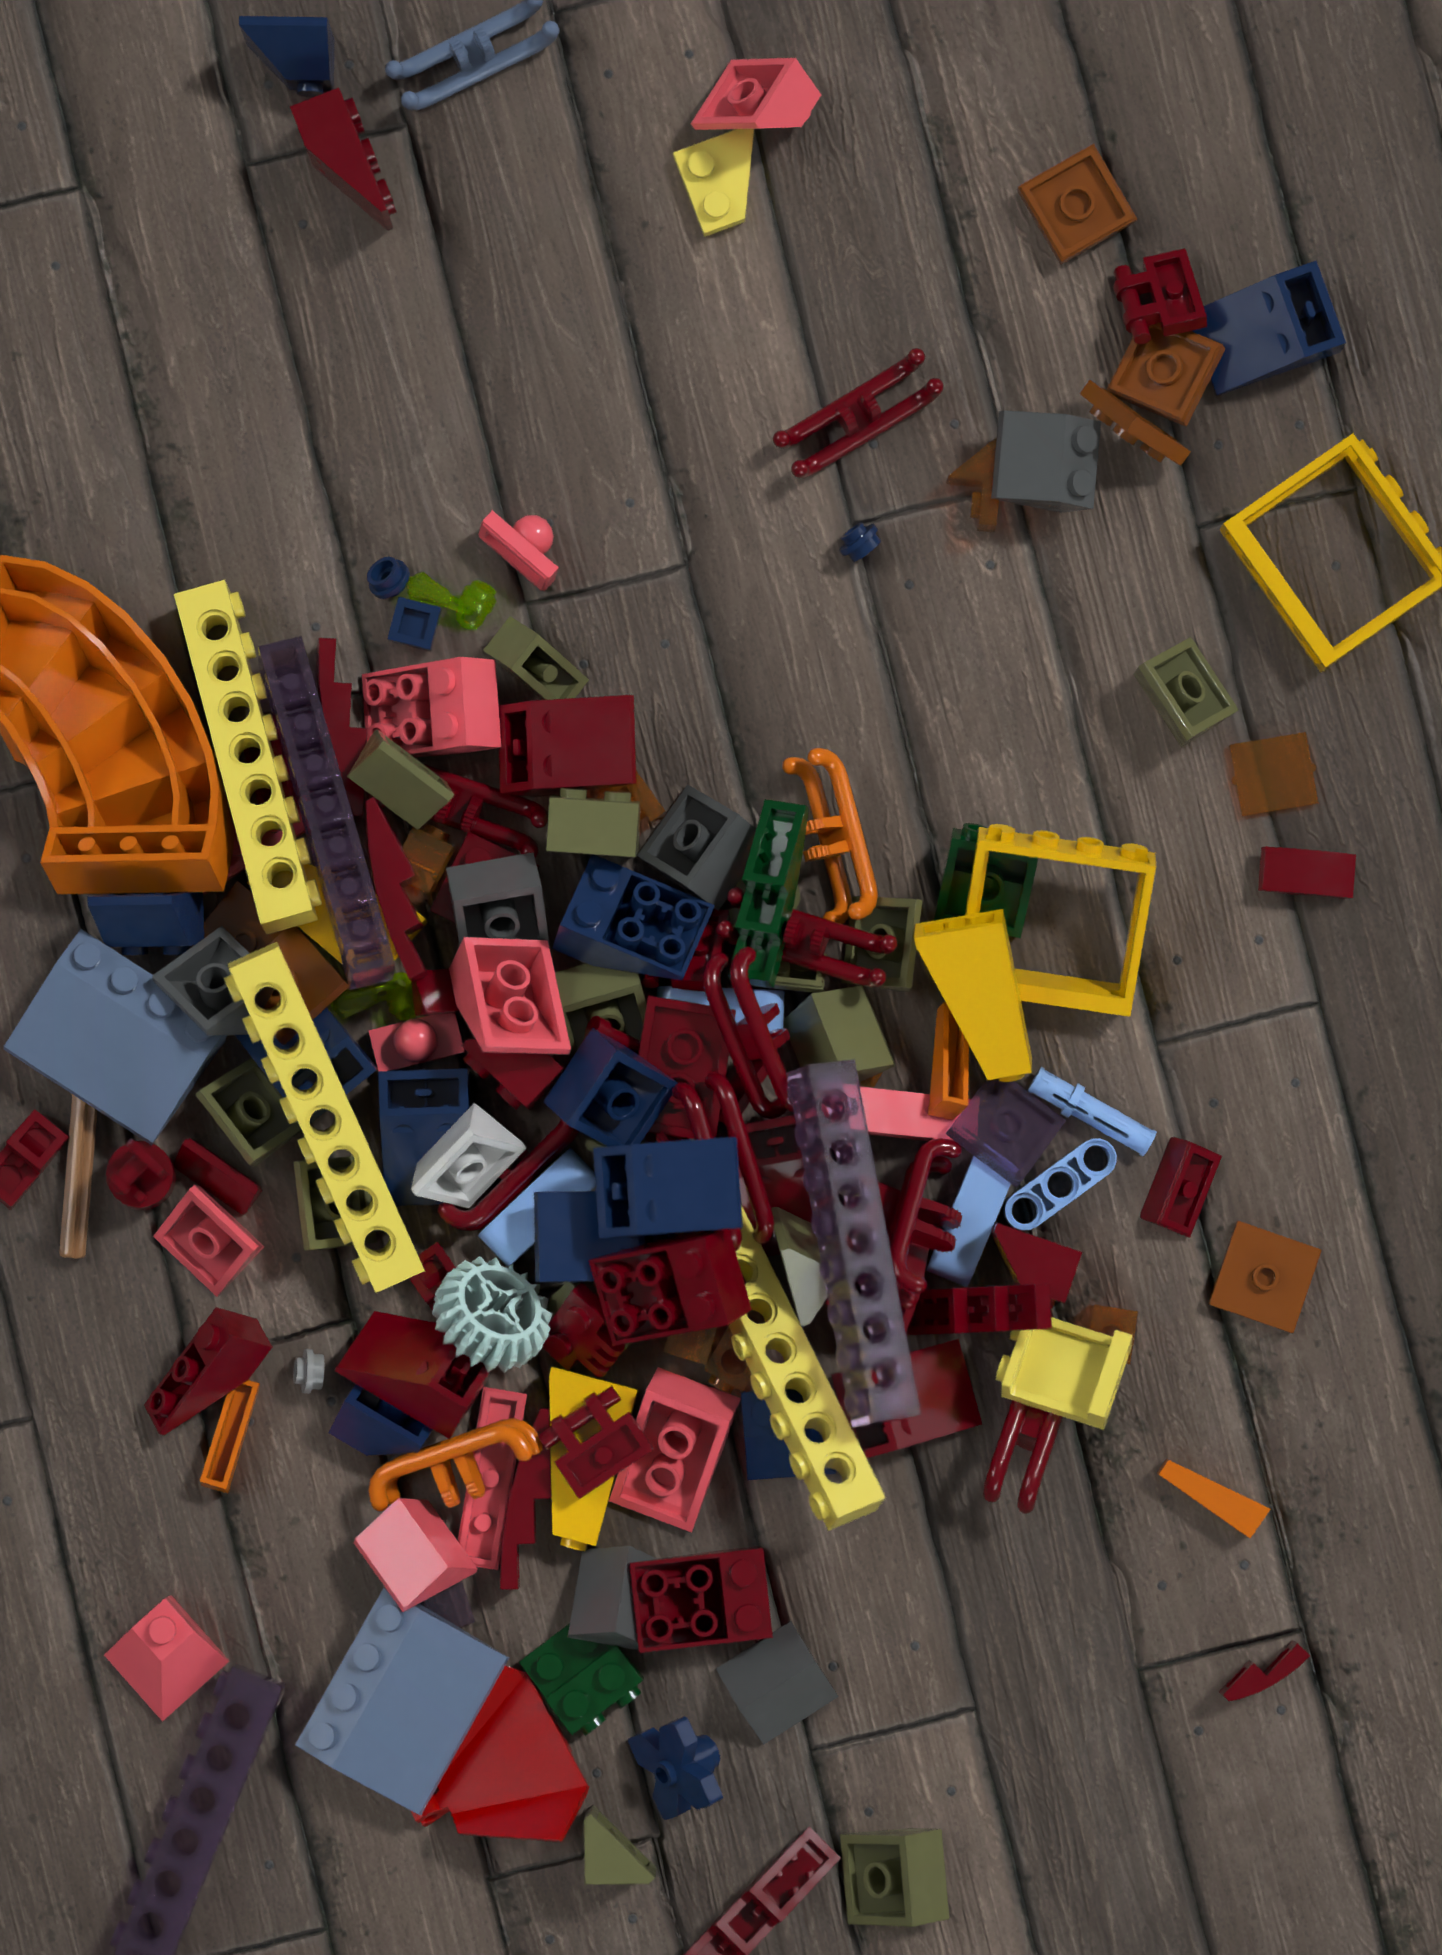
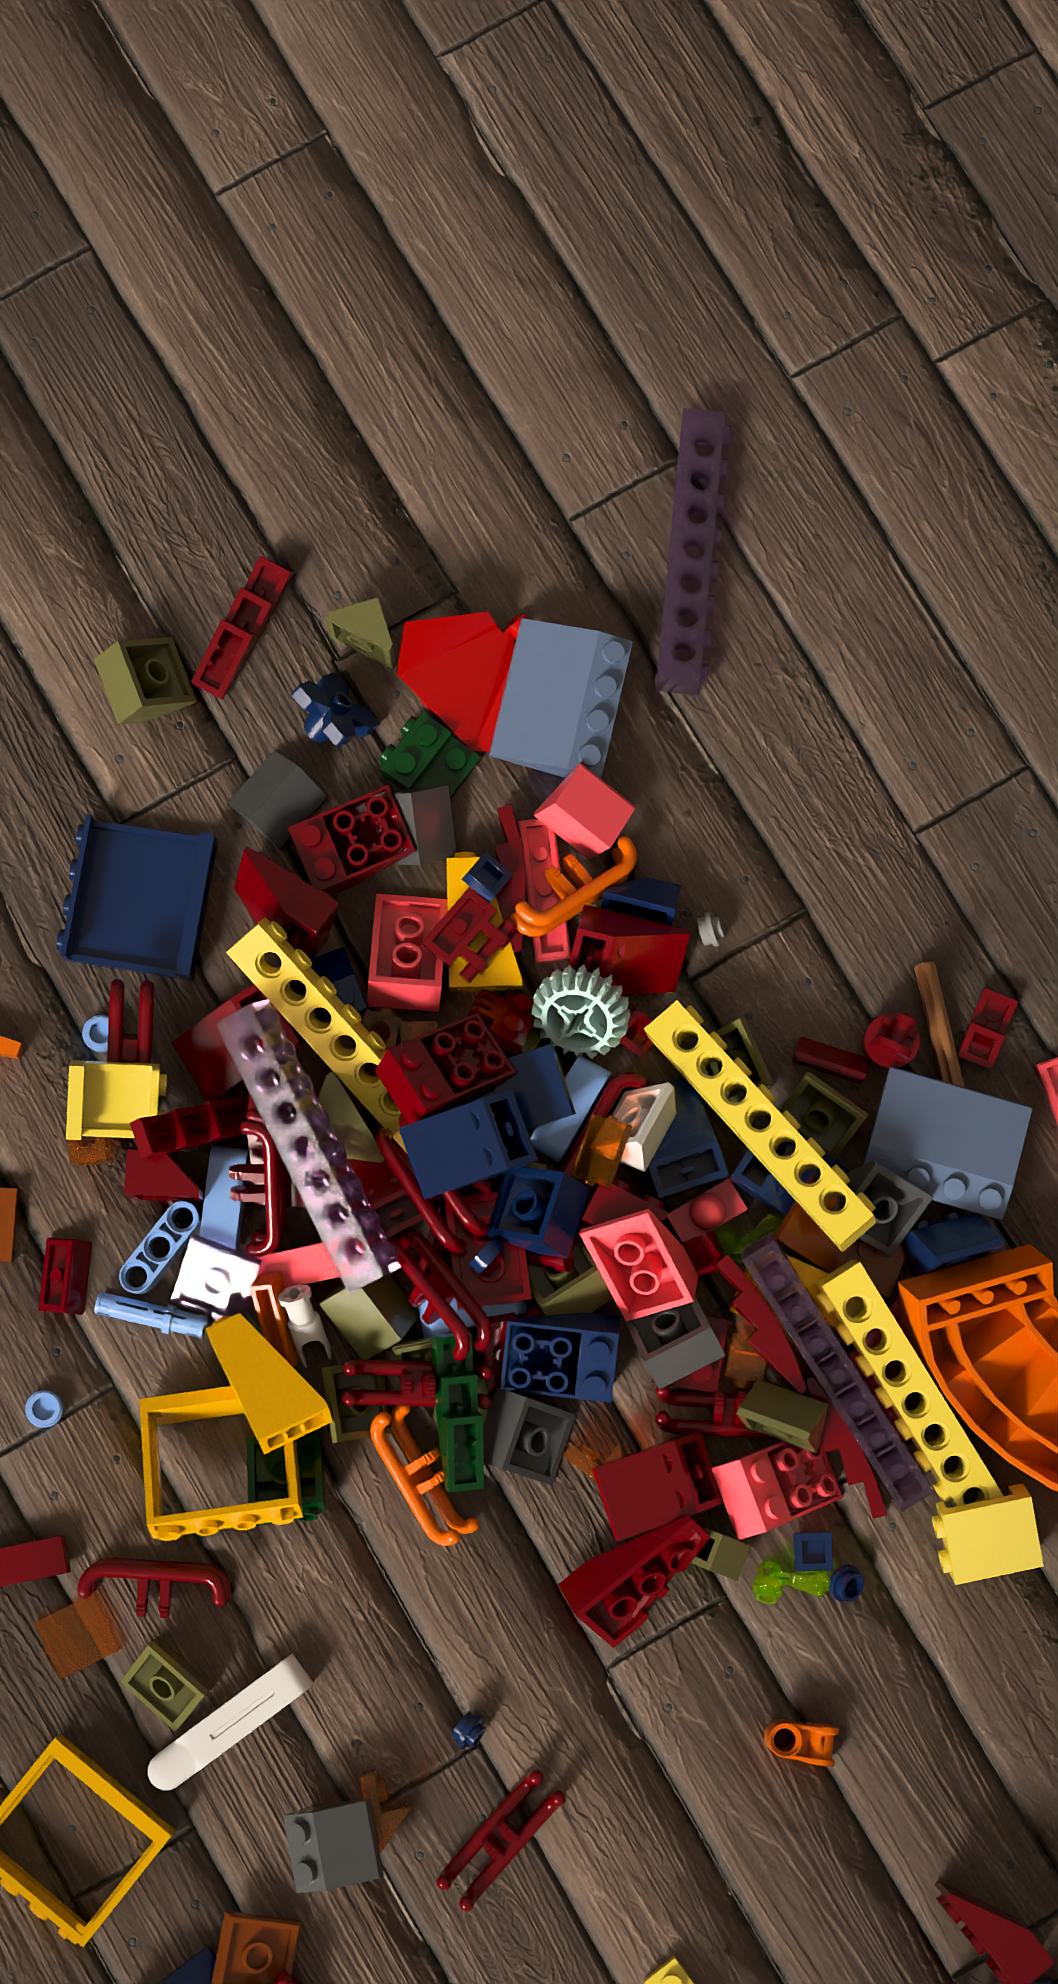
camera: 160 degrees right, 5 degrees down
(166, 1657) = (752, 683): coral slope -> none
(207, 1240) = (821, 1008): coral slope -> none
(212, 580) = (988, 1537): none -> light yellow panel
(212, 1365) = (788, 909): dark red slope -> none
(229, 1437) = (757, 863): orange piece -> none
(483, 418) = (810, 1741): none -> orange piece
(517, 1140) = (601, 1150): none -> clear orange piece
(522, 546) = (744, 1643): coral tile -> none
(554, 1505) = (487, 877): none -> dark blue plate
(593, 824) = (617, 1426): olive slope -> none
(645, 648) = (621, 1584): none -> dark red wedge
(684, 1059) = (486, 1255): none -> dark blue tile
(802, 1548) = (286, 899): none -> dark red slope
(917, 1049) = (303, 1321): none -> white piece
(975, 1609) = (137, 899): none -> dark blue panel
(1065, 1461) = (96, 1033): none -> light blue tile
(1126, 627) = (229, 1724): none -> white piece
(1133, 426) = (269, 1897): dark orange plate -> none
(1165, 820) = (156, 1570): none -> dark red piece
(1243, 1040) = (44, 1408): none -> light blue tile

